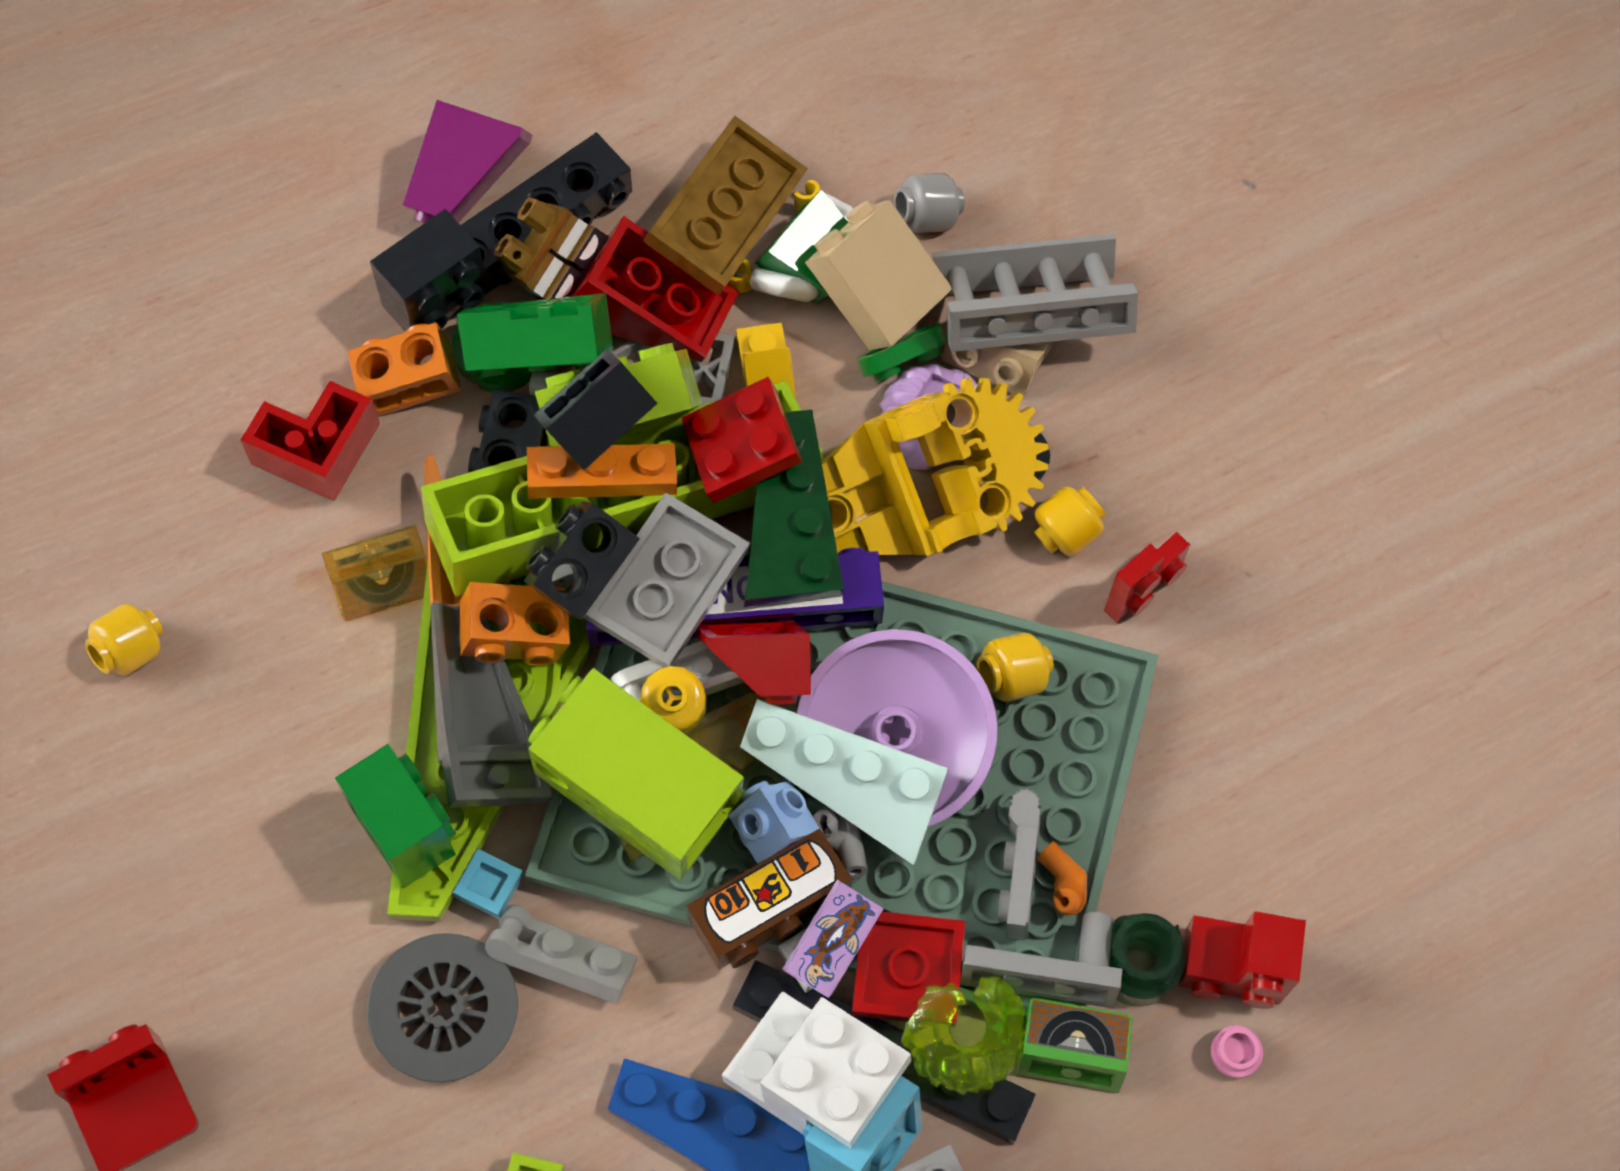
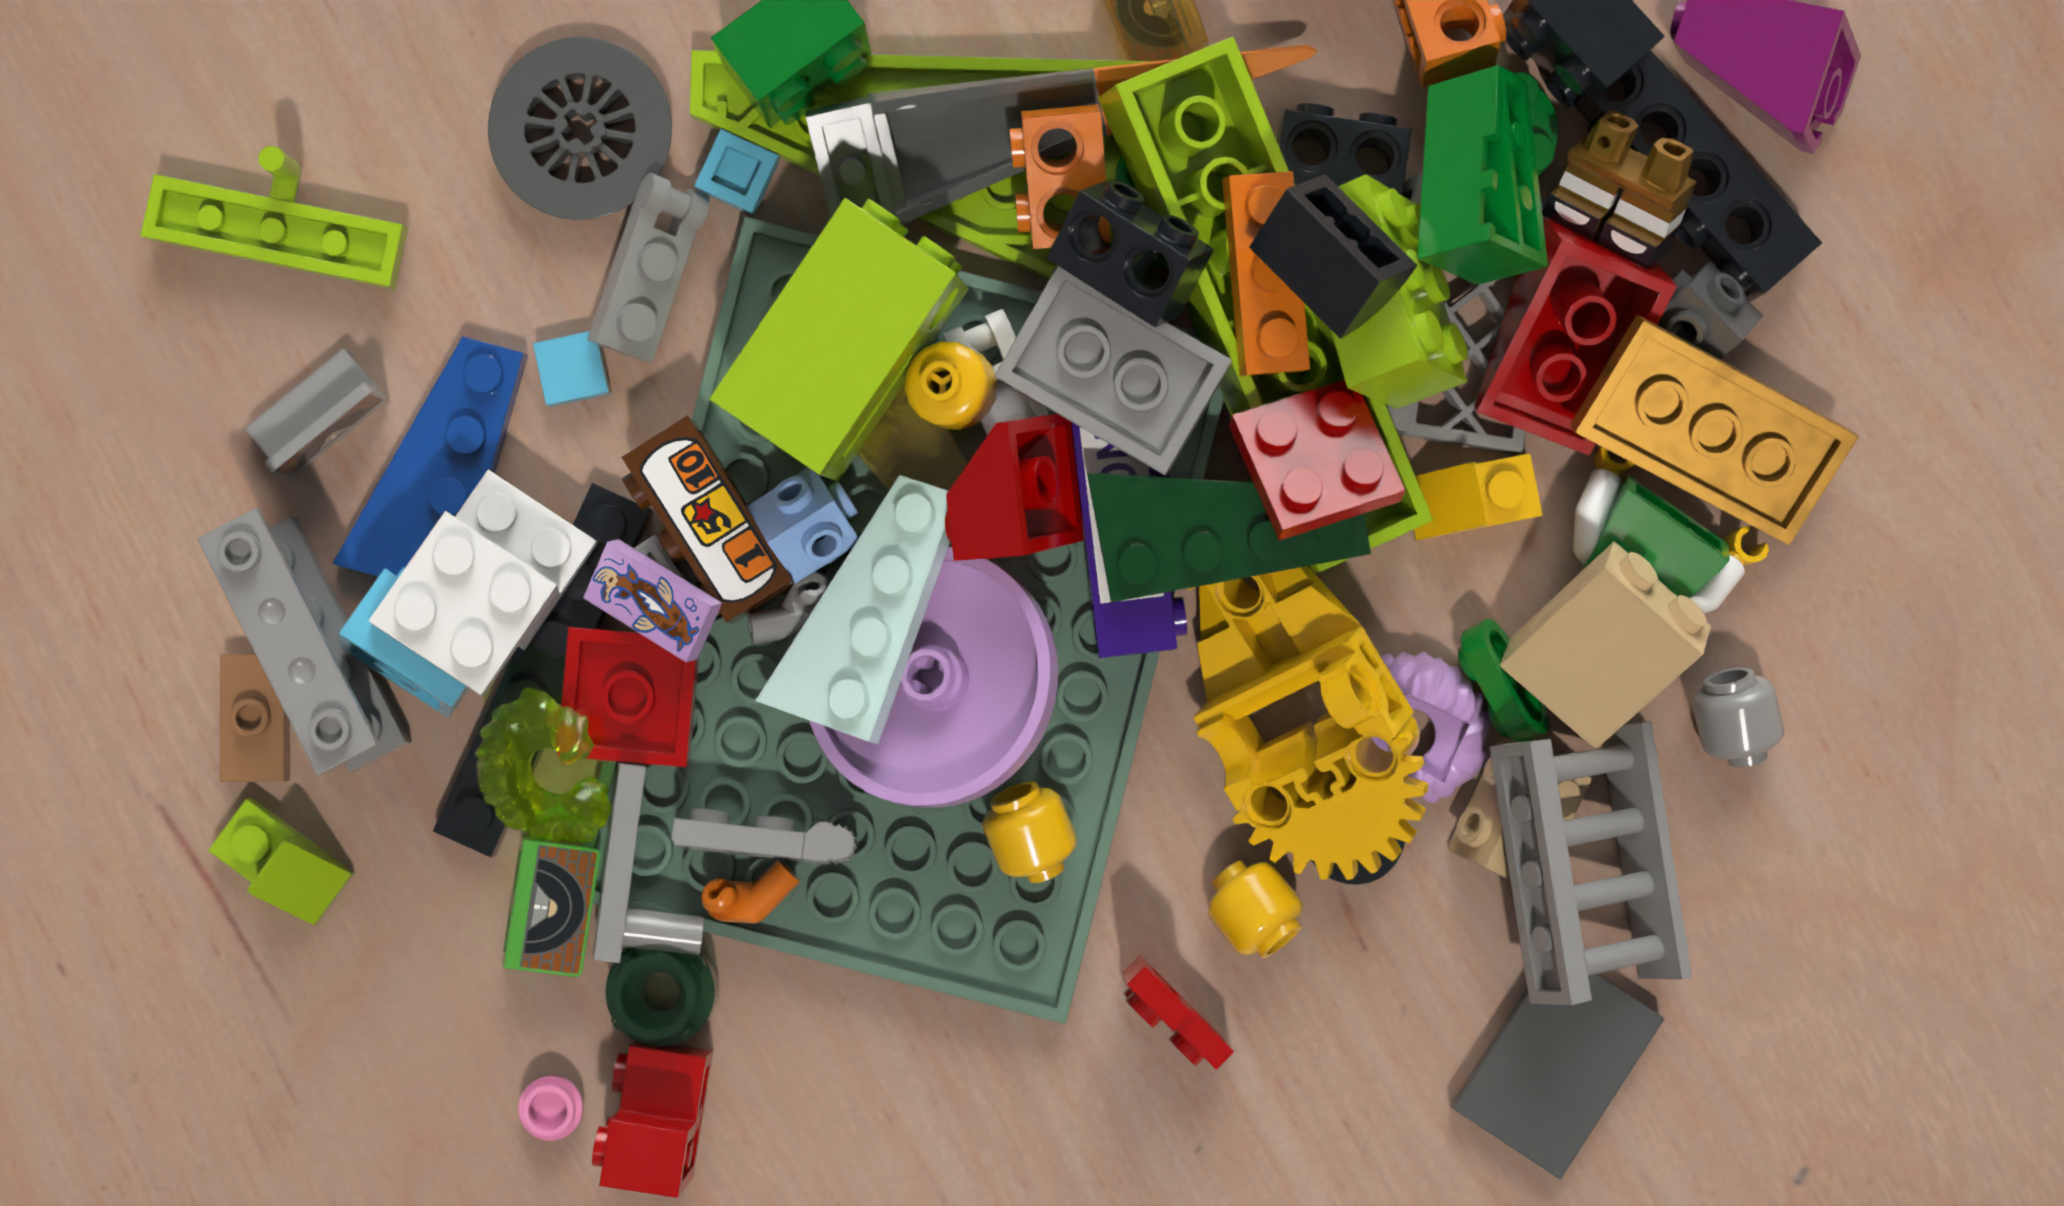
camera: 90 degrees right, 20 degrees up
(638, 1022) = (571, 369): none -> medium azure tile
(640, 201) = (1709, 311): none -> dark grey brick
(1183, 333) = (1556, 1072): none -> dark grey tile

